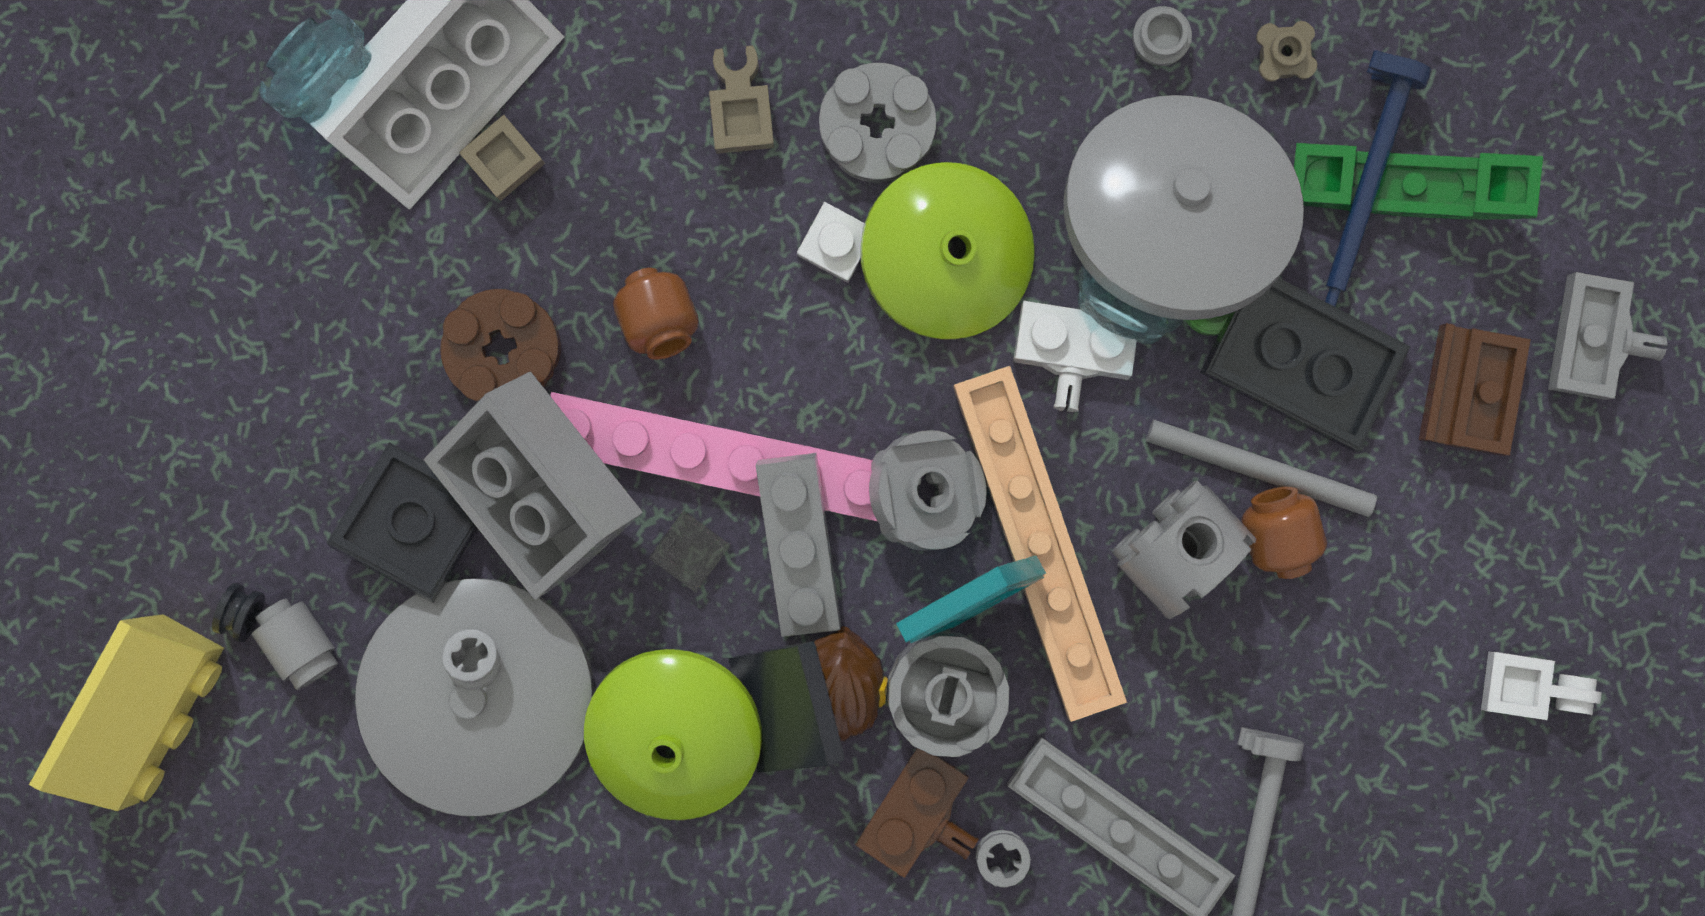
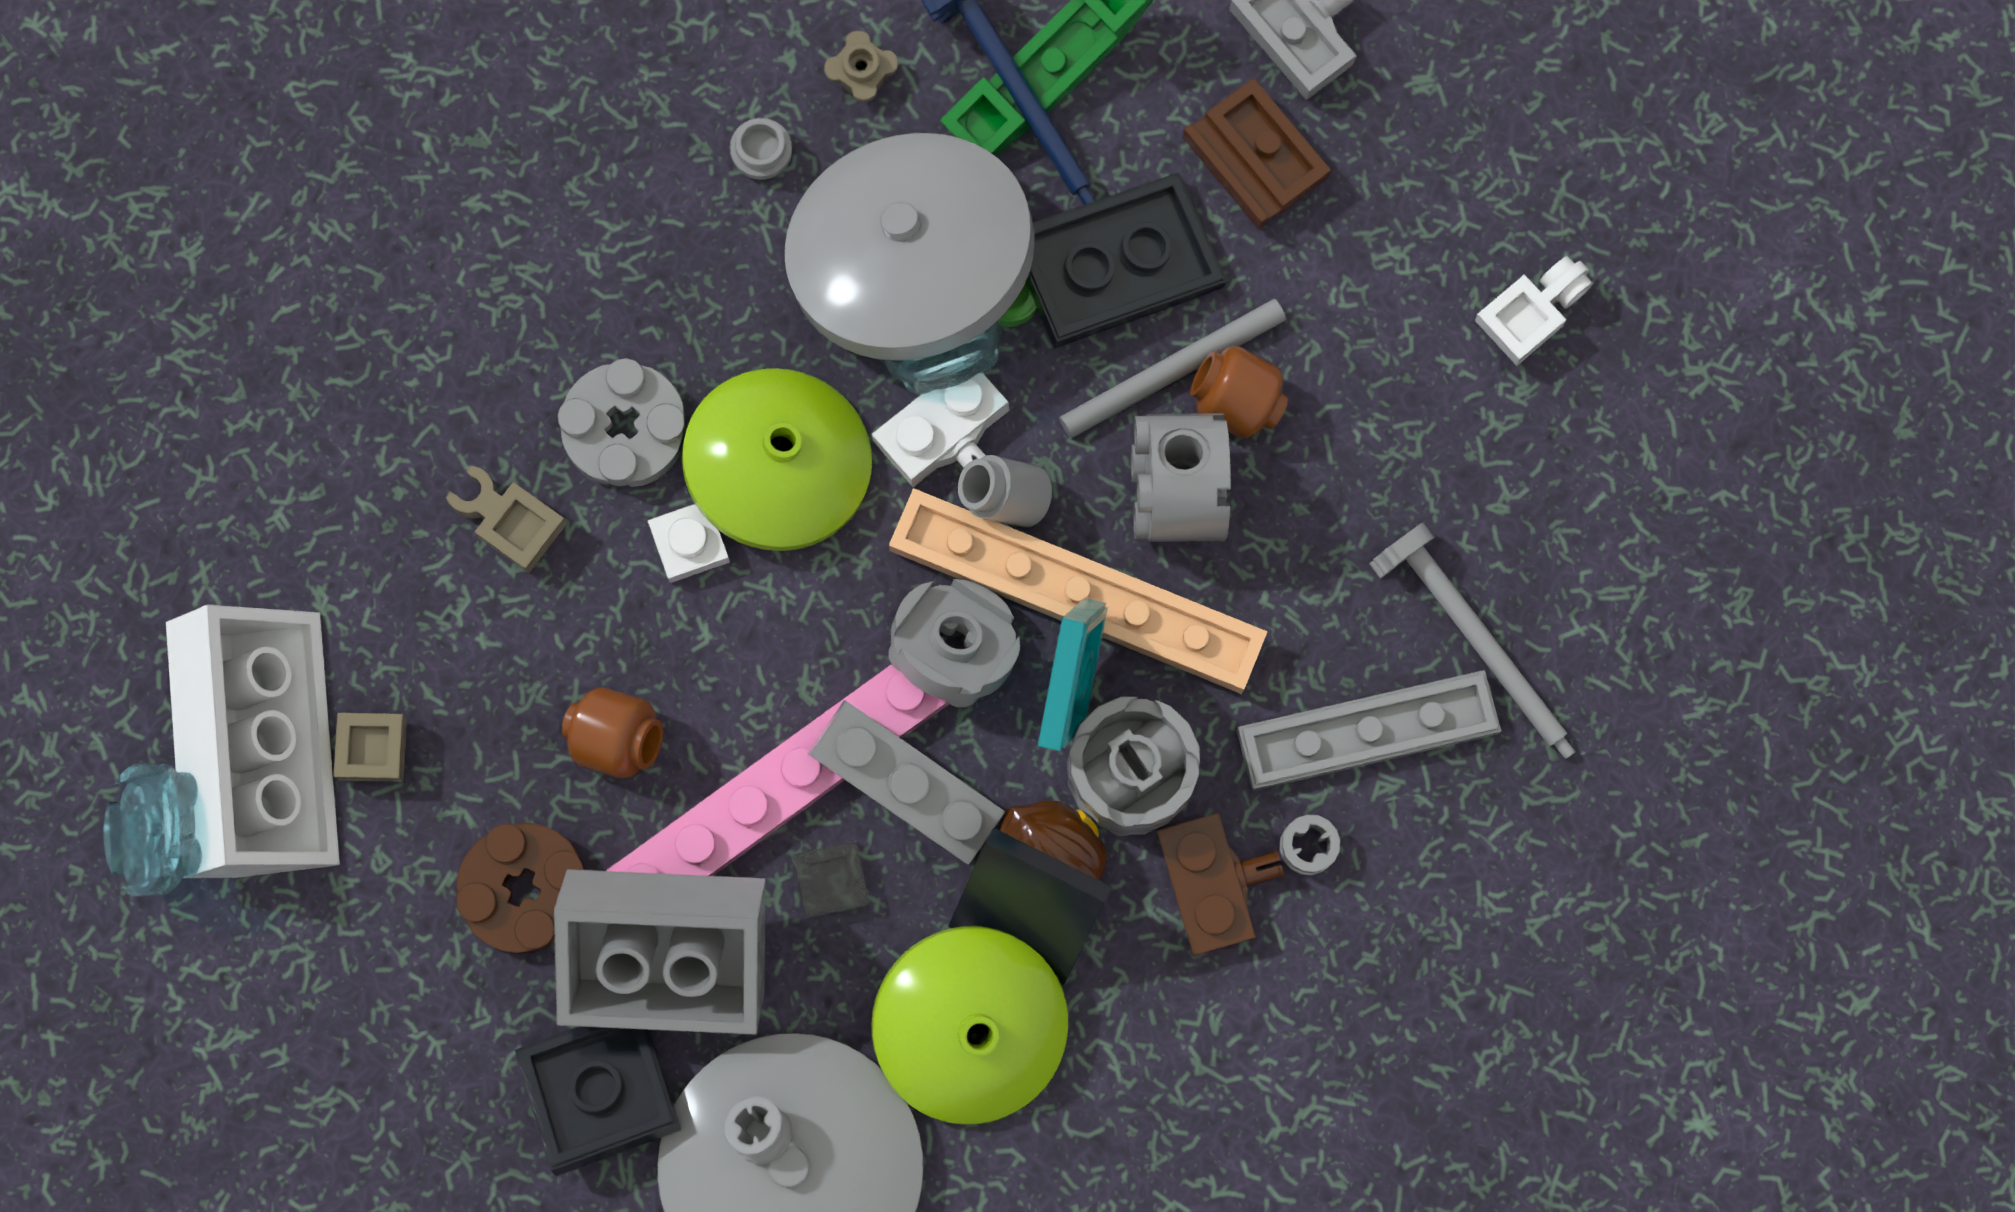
camera: 50 degrees left, 10 degrees down
(1064, 432) = (1005, 490): none -> light grey brick

